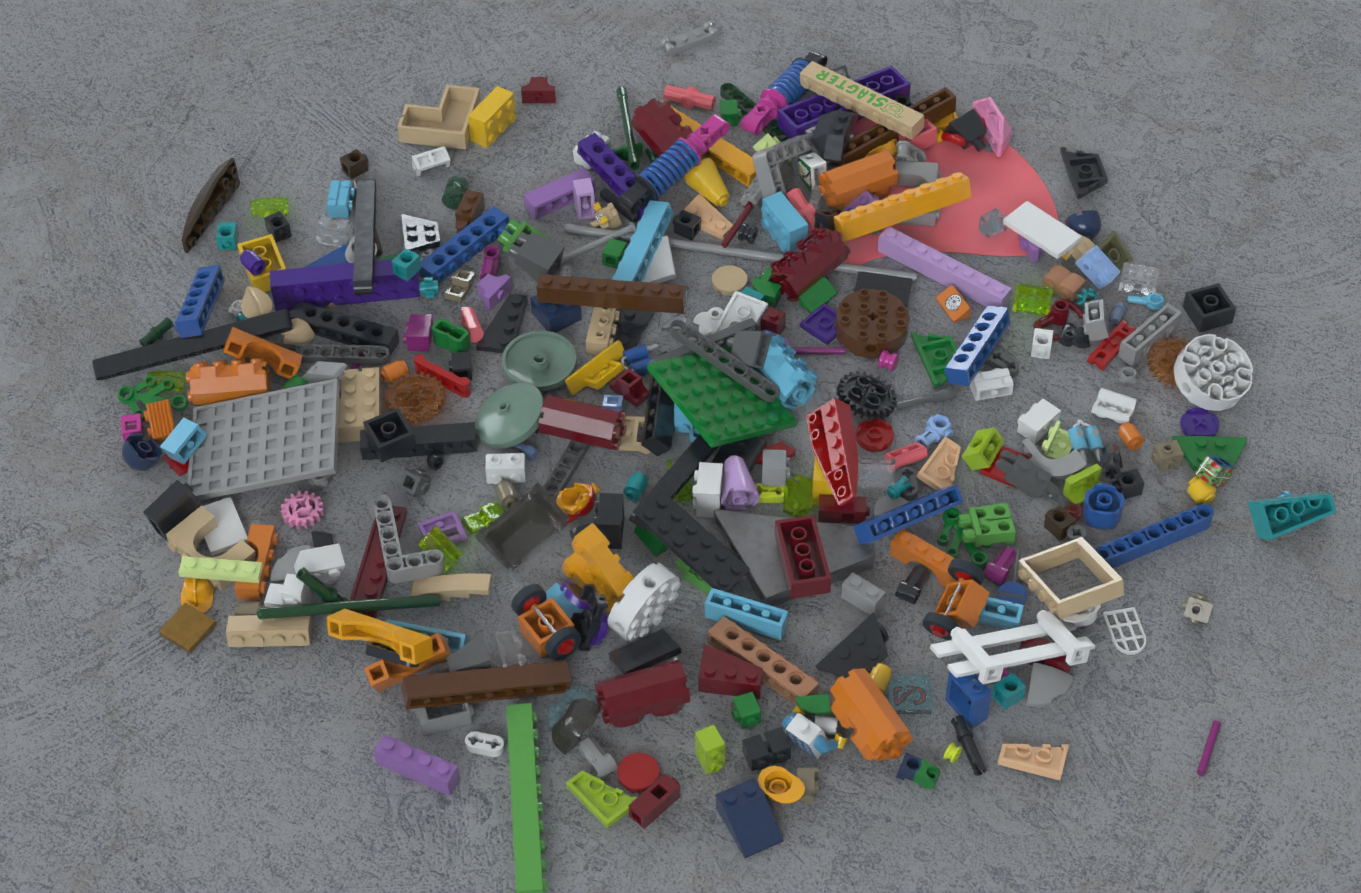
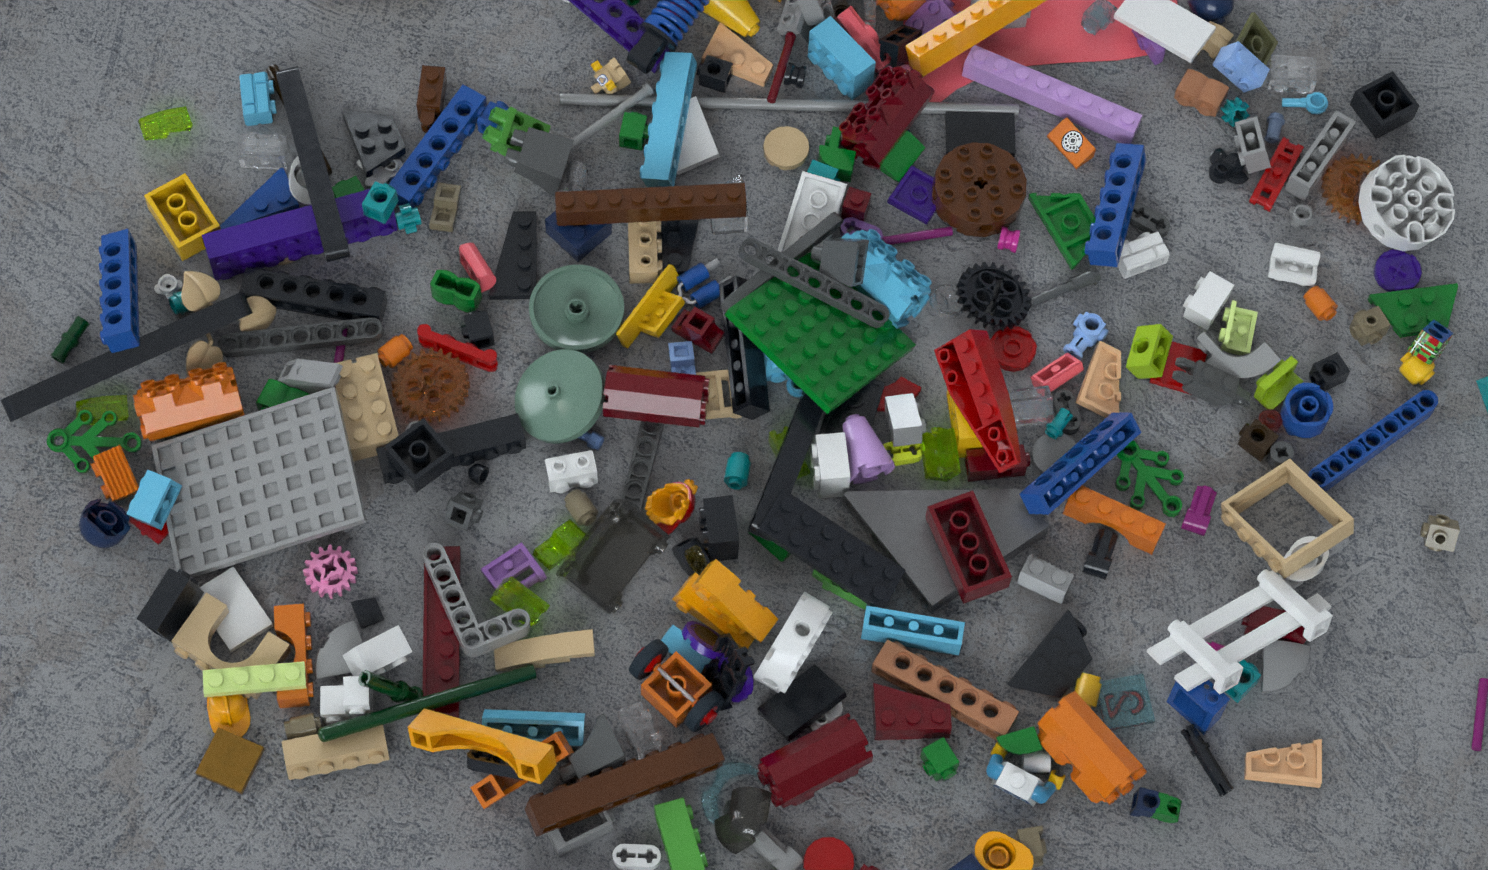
camera: 15 degrees left, 15 degrees up
(130, 429) = (77, 483): dark pink brick -> none
(210, 202) = (85, 129): dark brown wedge -> none
(227, 236) = (122, 170): teal brick -> none
(242, 344) = (250, 360): orange arch -> none
(252, 262) = (175, 224): dark purple brick -> none
(277, 226) = (182, 146): black brick -> none
(354, 164) = (261, 49): dark brown brick -> none
(418, 332) = (413, 289): magenta brick -> none
(430, 159) = (361, 22): white hinge -> none
(454, 192) = (406, 68): clear green wheel -> none
(490, 262) = (478, 171): magenta piece -> none
(494, 289) = (491, 209): medium lavender brick -> none
(554, 195) = (540, 48): medium lavender brick -> none
(584, 198) = (577, 56): lavender brick -> none
(609, 197) = (614, 50): black axle -> none
(707, 321) = (773, 217): white plate -> none
(710, 749) = (910, 823): lime brick -> none
(761, 753) = (969, 810): black piece -> none
(952, 753) = (1191, 773): neon yellow bush -> none
(960, 601) = (1164, 577): brick -> none
(988, 525) = (1176, 460): bright green hips -> none
(1002, 614) = (1214, 580): medium azure brick -> none
(1013, 591) = (1218, 546): blue piece -> none
(1032, 299) = (1169, 125): clear neon green brick -> none
(1042, 343) = (1191, 178): white brick -> none
(1058, 315) = (1202, 143): dark red piece -> none
(1092, 437) = (1270, 319): medium azure piece -> none
(1111, 462) = (1306, 348): black piece -> none
(1118, 625) = (1360, 563): white window -> none

